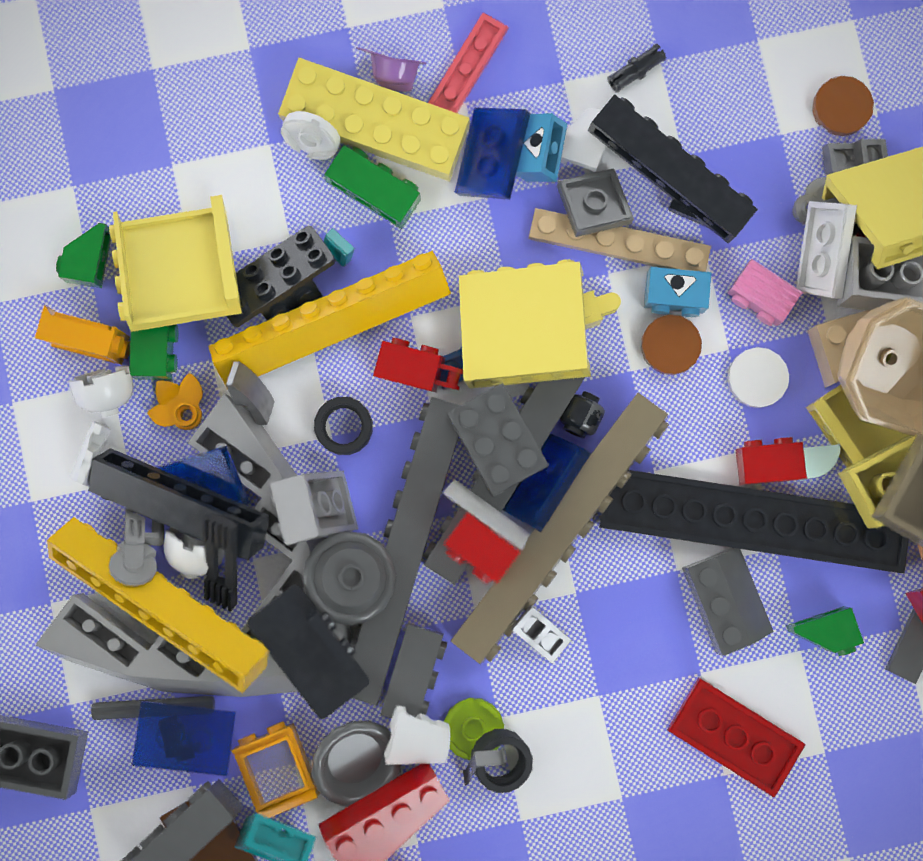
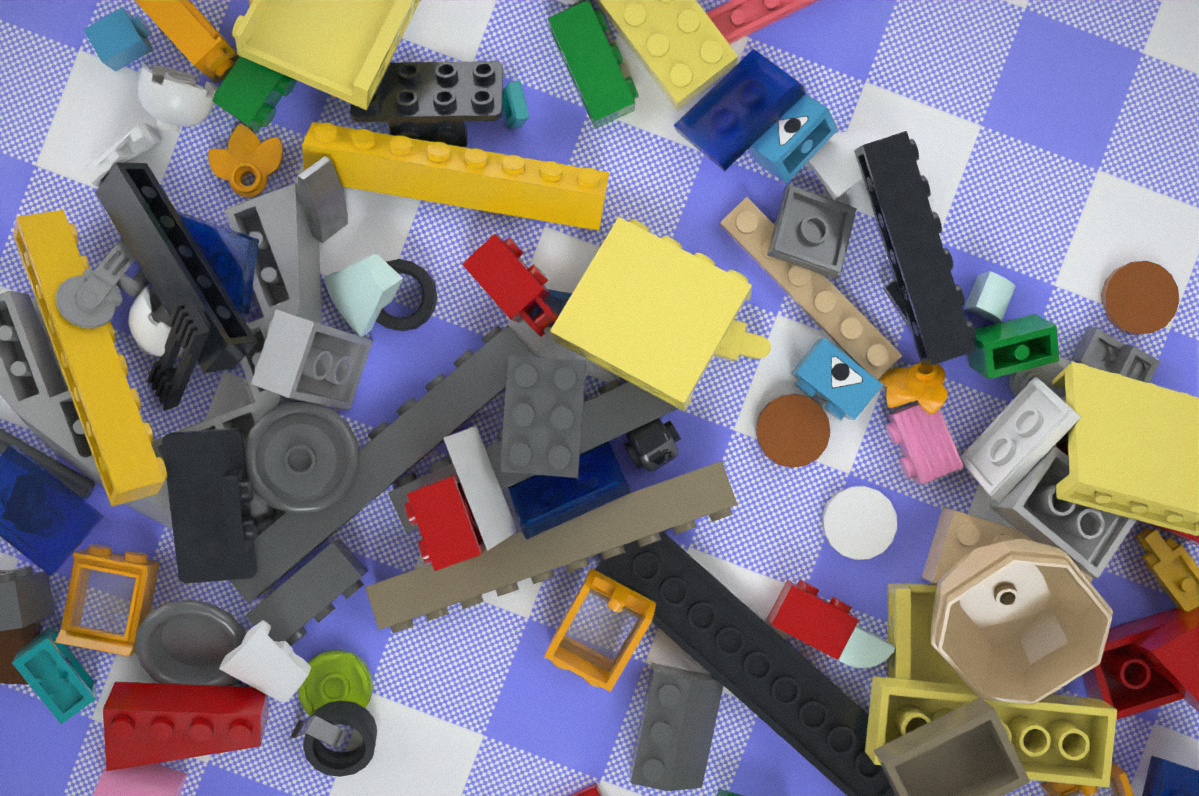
camera: 30 degrees right, 5 degrees up
(38, 375) = (119, 39): none -> dark azure brick
(317, 438) = (363, 291): none -> light aqua slope
(541, 634) = (462, 639): slope -> none
(632, 565) = (600, 630): none -> window
(636, 68) = (951, 117): black pin -> none
(732, 258) = (916, 383): none -> light orange plate
(743, 168) = (990, 296): none -> light aqua brick
(781, 190) = (1014, 346): none -> green brick

